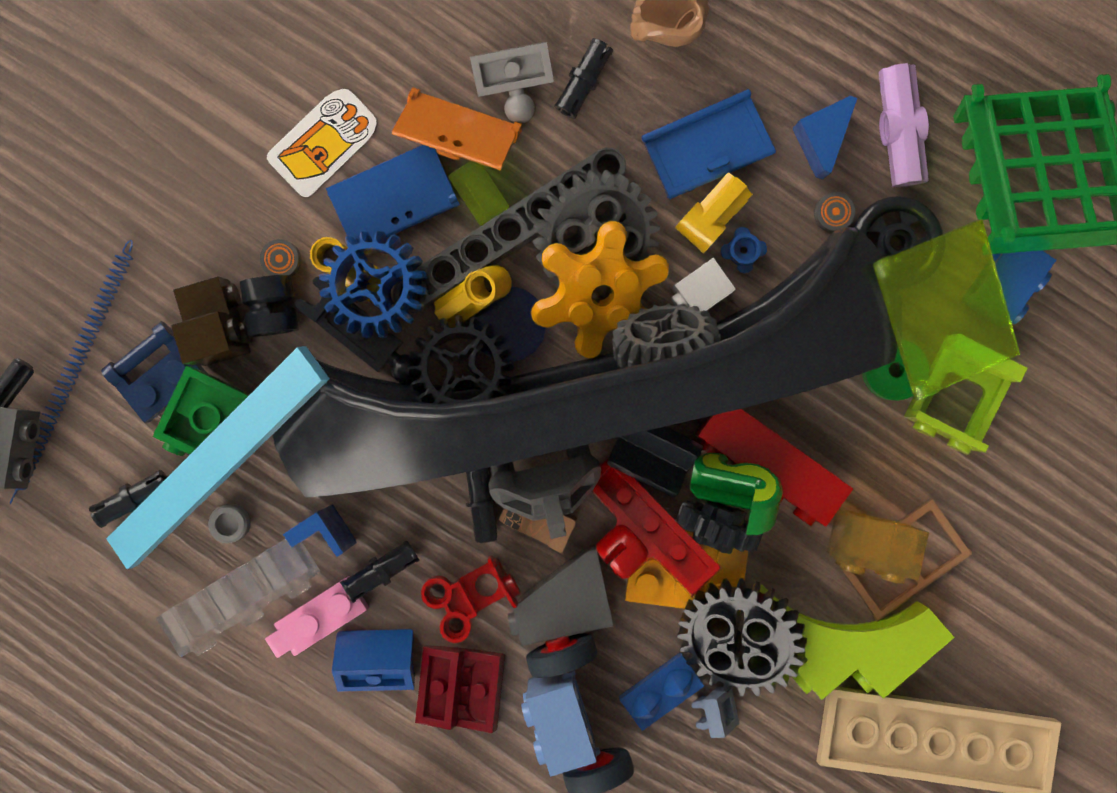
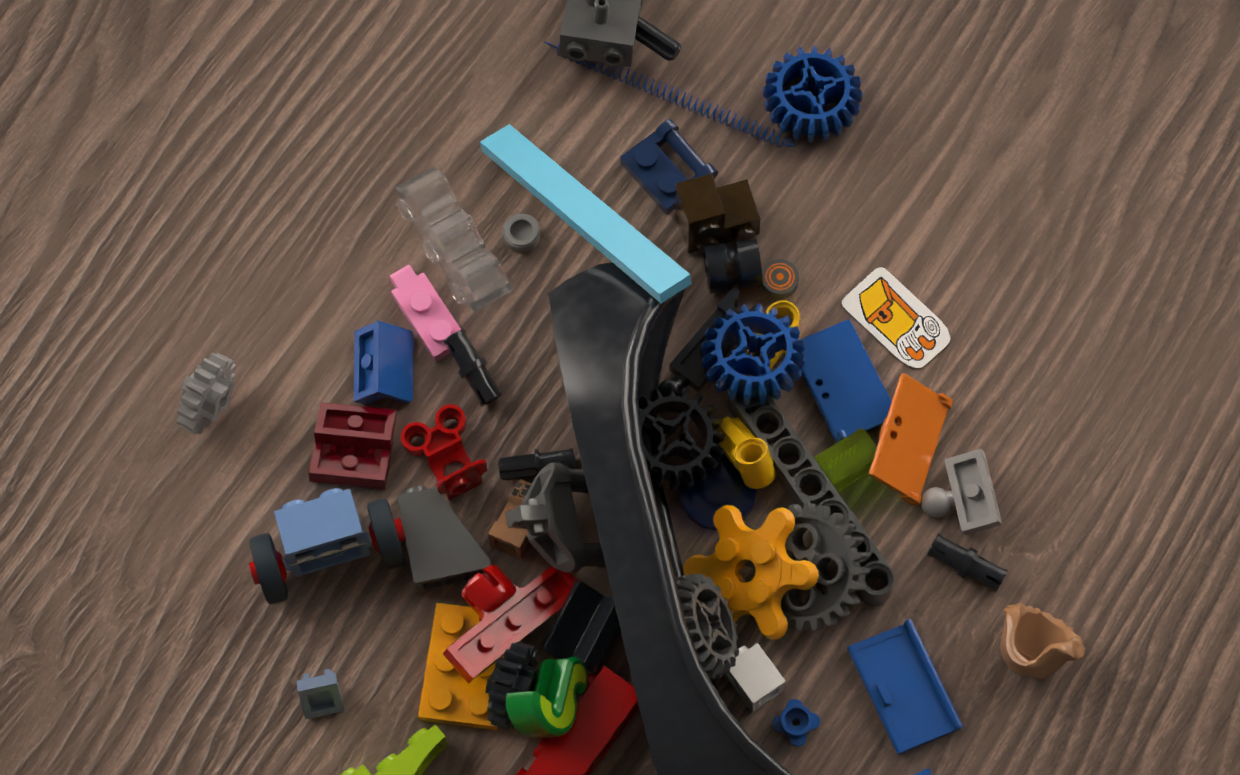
camera: 90 degrees right, 20 degrees down
(60, 194) = (835, 83): none -> blue gear
(125, 500) = (545, 139): black pin -> none
(196, 410) = (632, 198): green plate -> none
(330, 526) = (520, 315): blue panel -> none
(661, 691) = (342, 641): blue tile -> none
(708, 219) = (825, 682): yellow piece -> none
(708, 637) = (398, 709): black gear -> none

